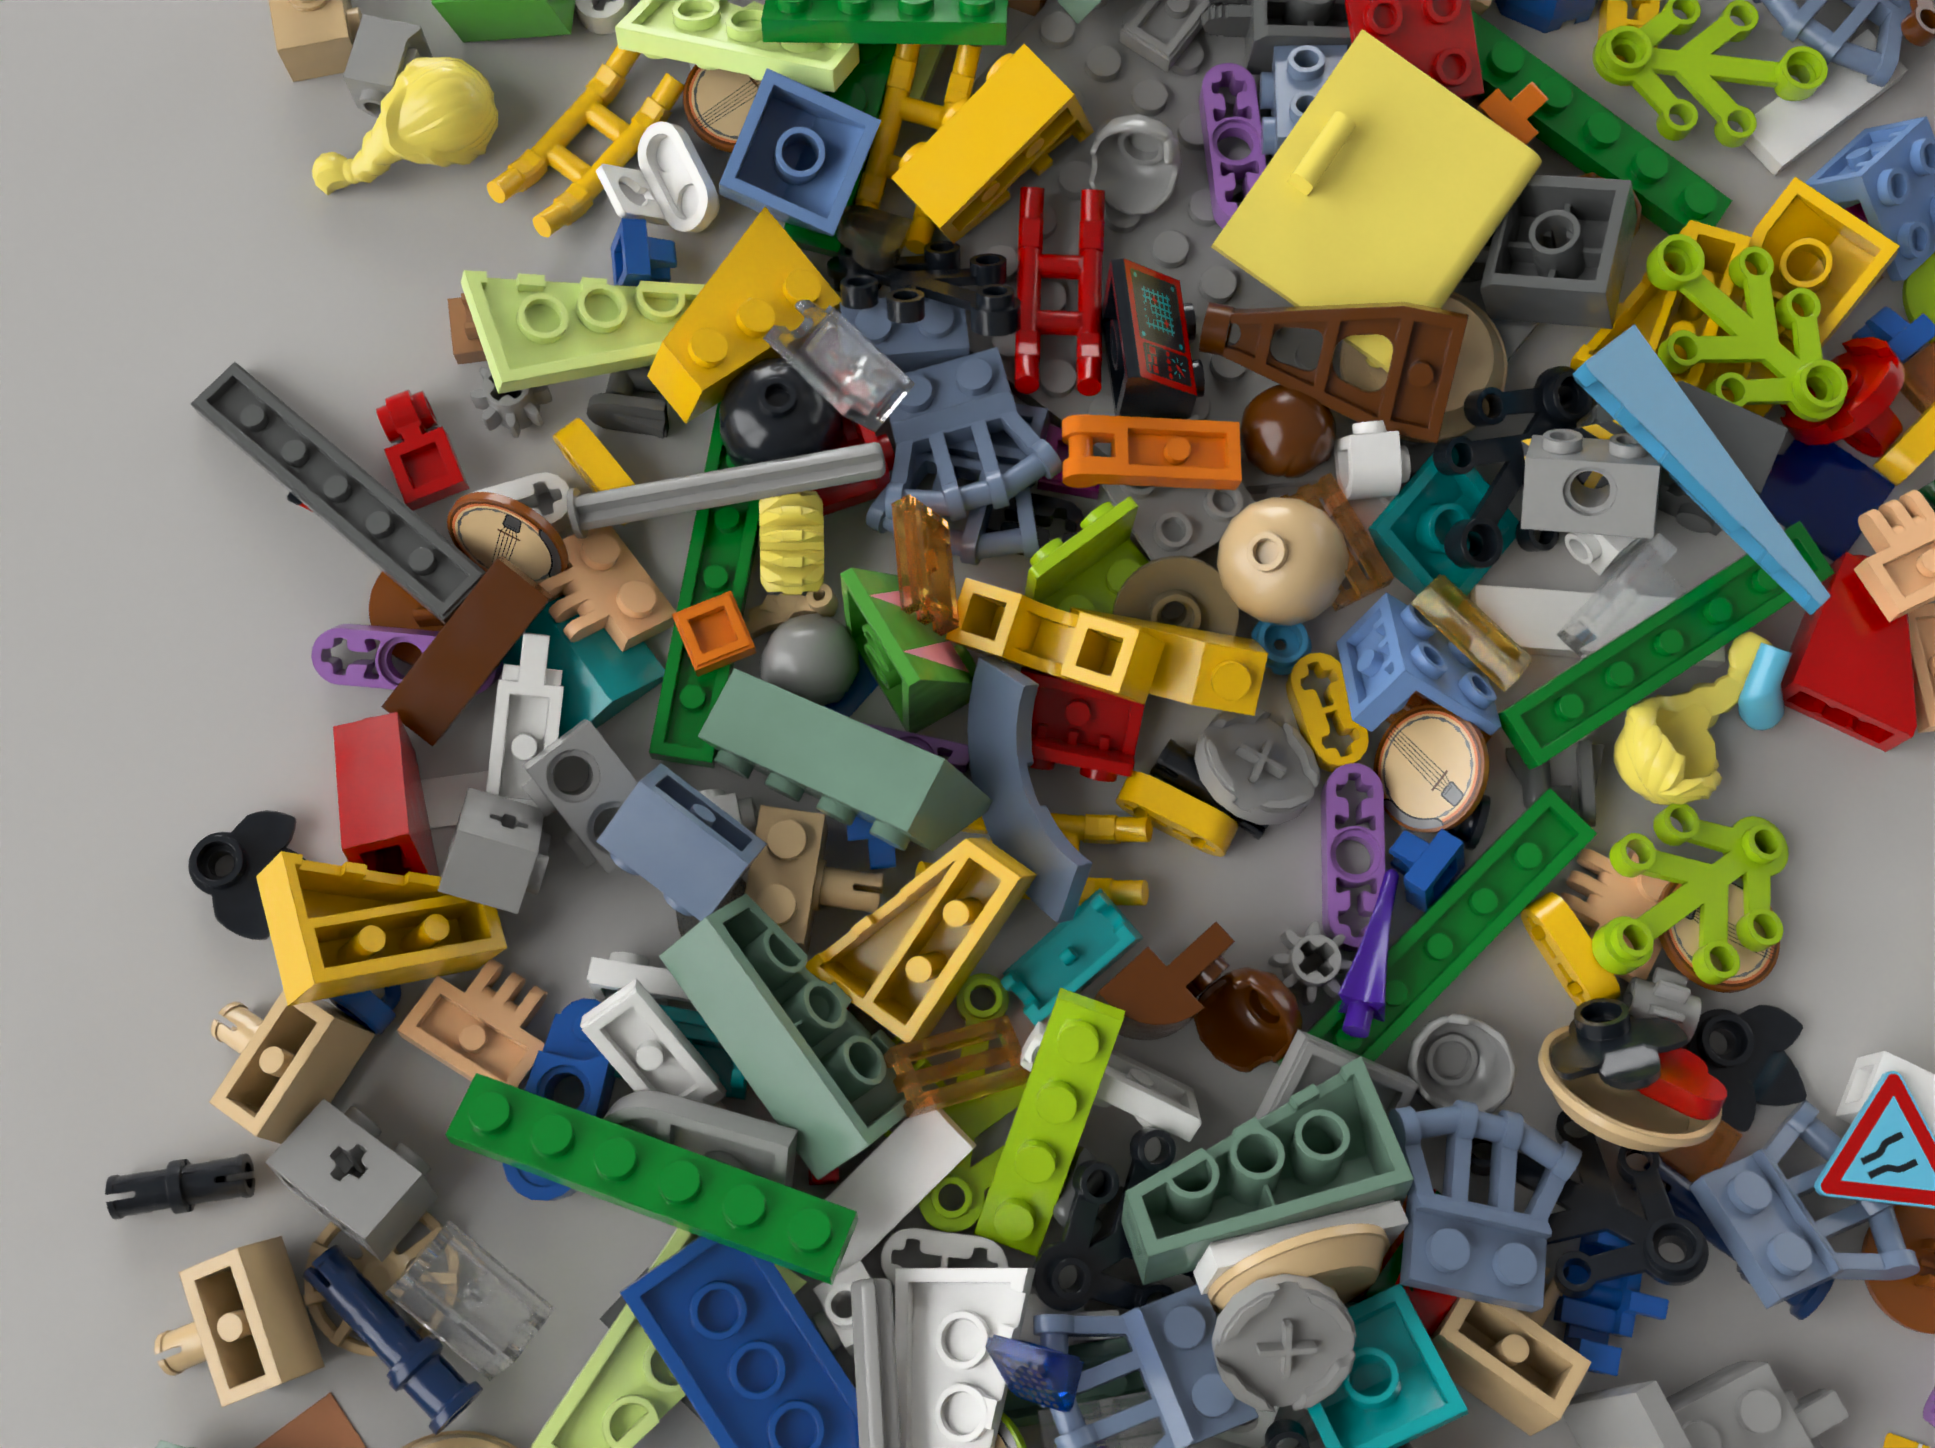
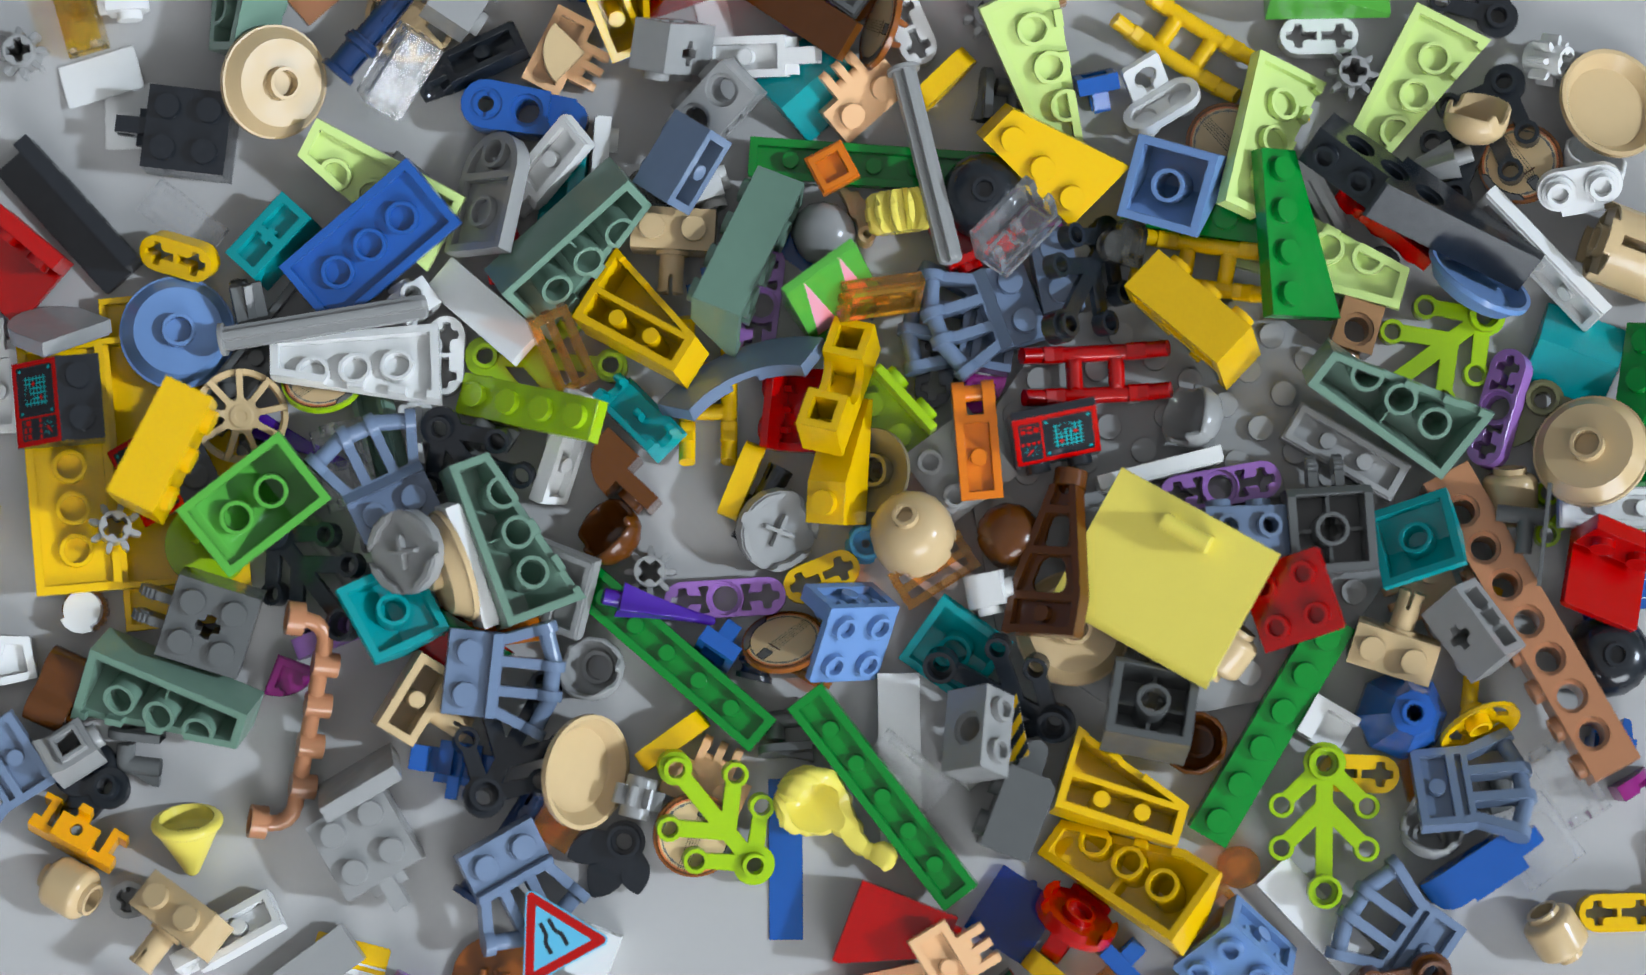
camera: 90 degrees right, 10 degrees up
(471, 1185) = (475, 60): none -> black hinge
(476, 1033) = (559, 52): none -> tan tile
(654, 1178) = (476, 168): green plate -> none
(1036, 1371) = (381, 408): clear blue slope -> none
(1205, 213) = (1166, 467): none -> white tile
(1472, 632) = (878, 665): clear yellow tile -> none
(1514, 114) = (1255, 678): orange tile -> none
(1562, 51) = (1327, 722): none -> white panel
(1615, 1045) = (607, 758): black plate -> none
(1655, 411) = (1008, 775): dark azure wedge -> none
(1687, 1086) = (587, 801): red tile -> none
(1751, 333) = (1097, 844): lime plant -> none
(1754, 189) = (1239, 866): none -> clear orange tile
(1762, 697) = (856, 862): medium azure arm -> none
(1788, 807) = (786, 879): none -> blue sticker

